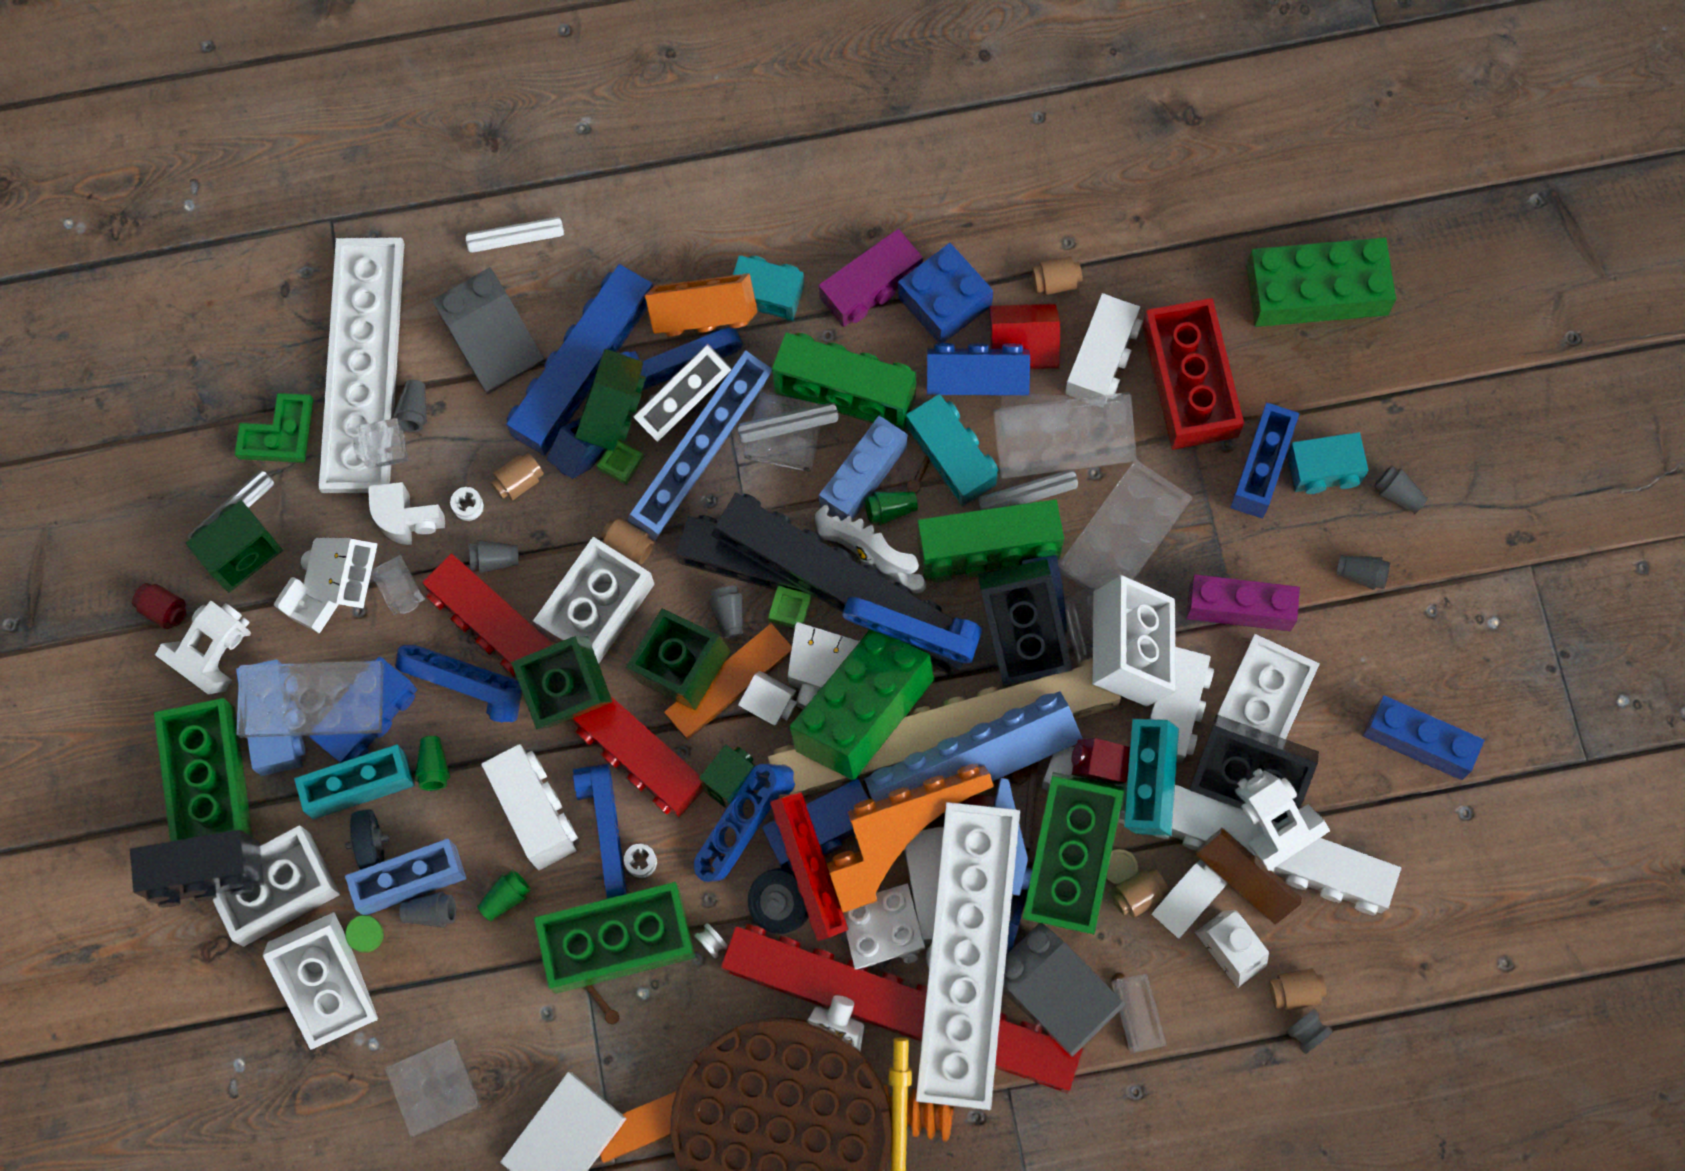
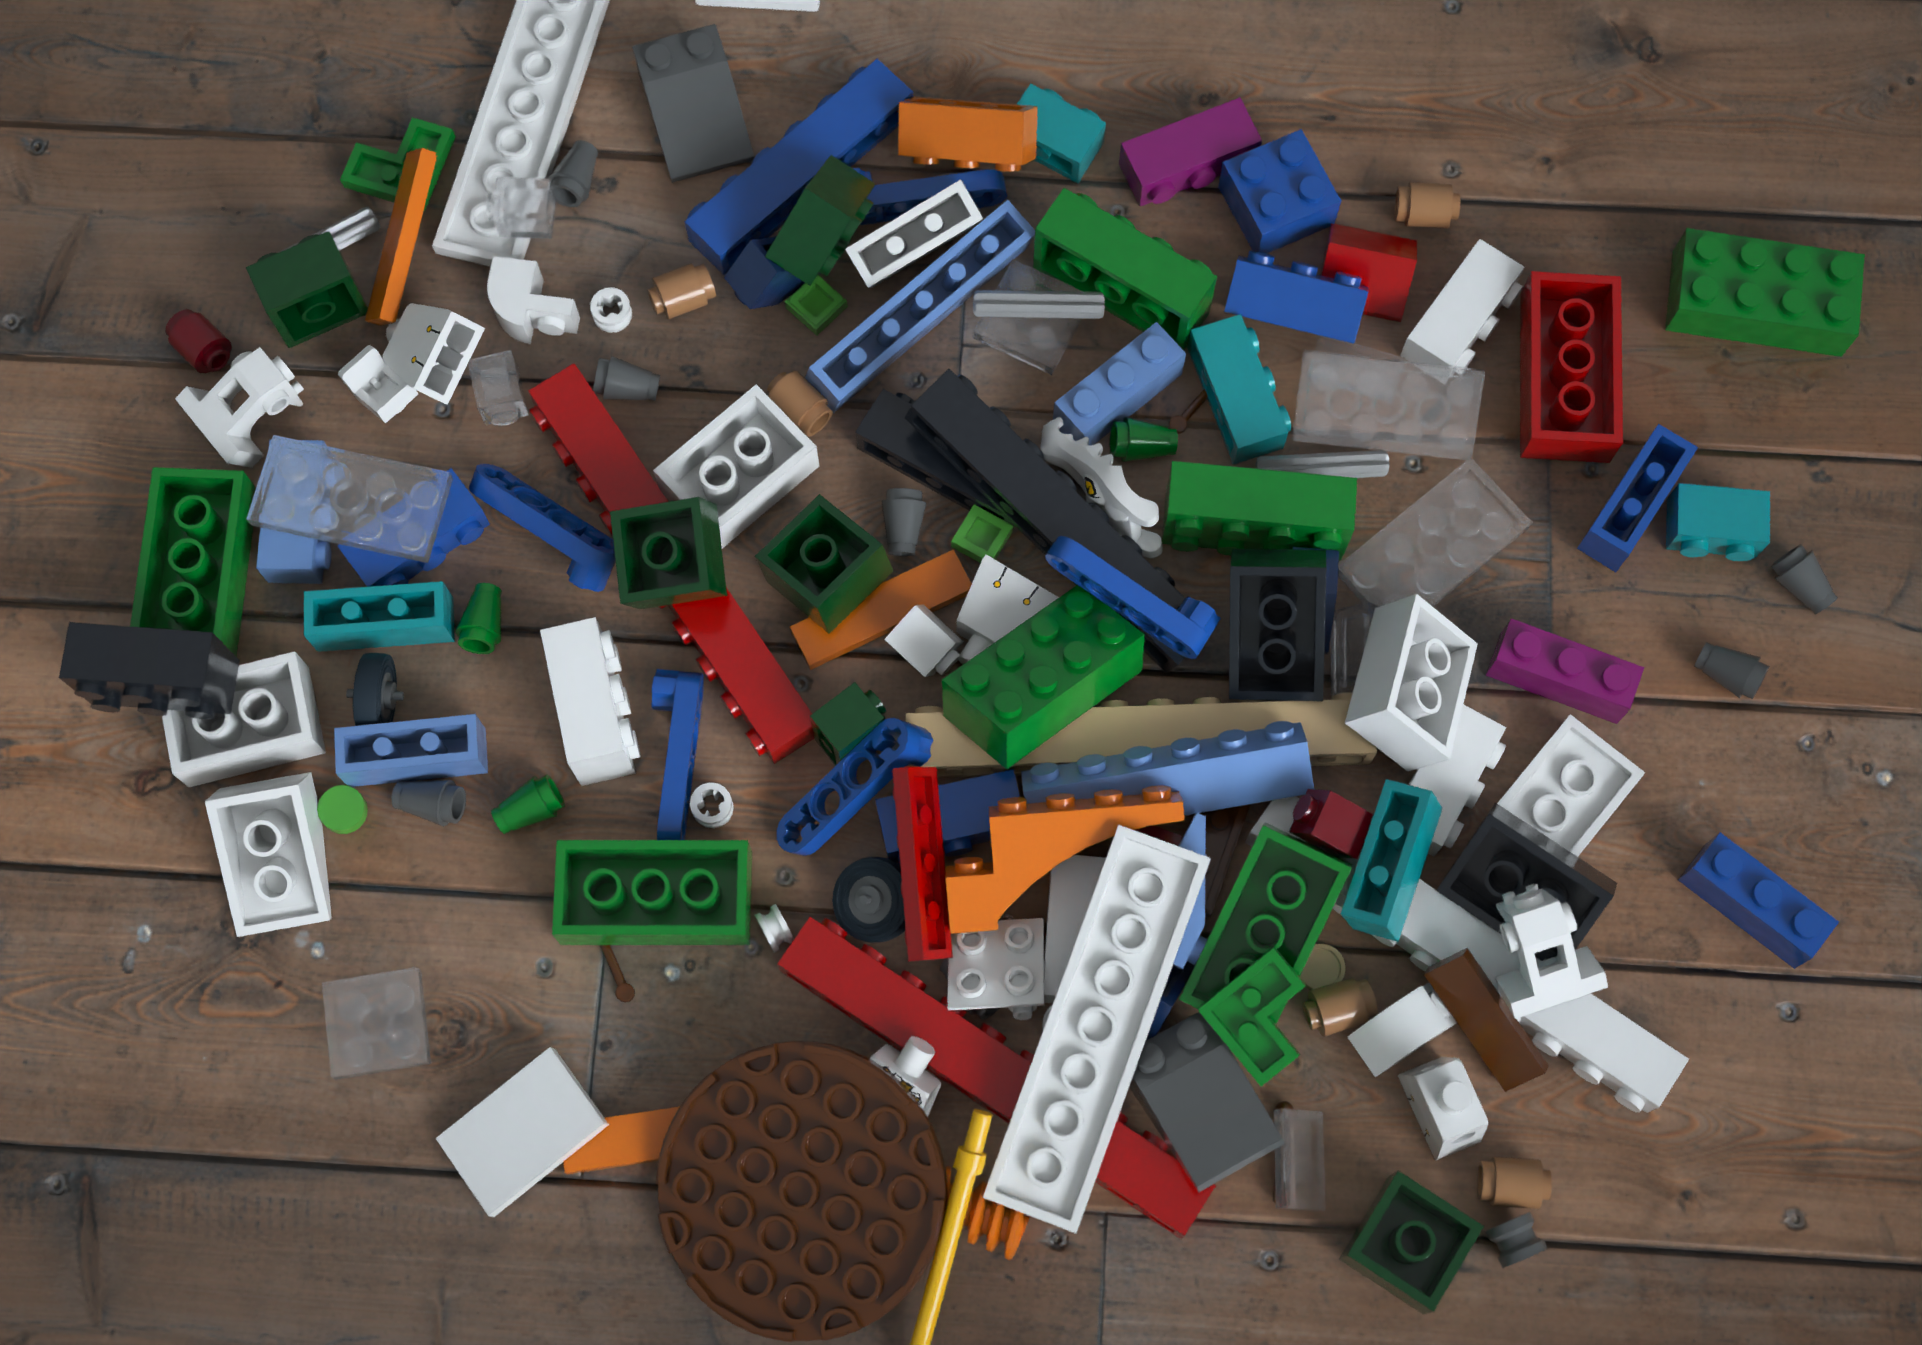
camera: 10 degrees right, 0 degrees up
(294, 488) = (401, 237): none -> orange tile
(1071, 917) = (1243, 1010): none -> green plate
(1234, 1053) = (1411, 1242): none -> dark green brick

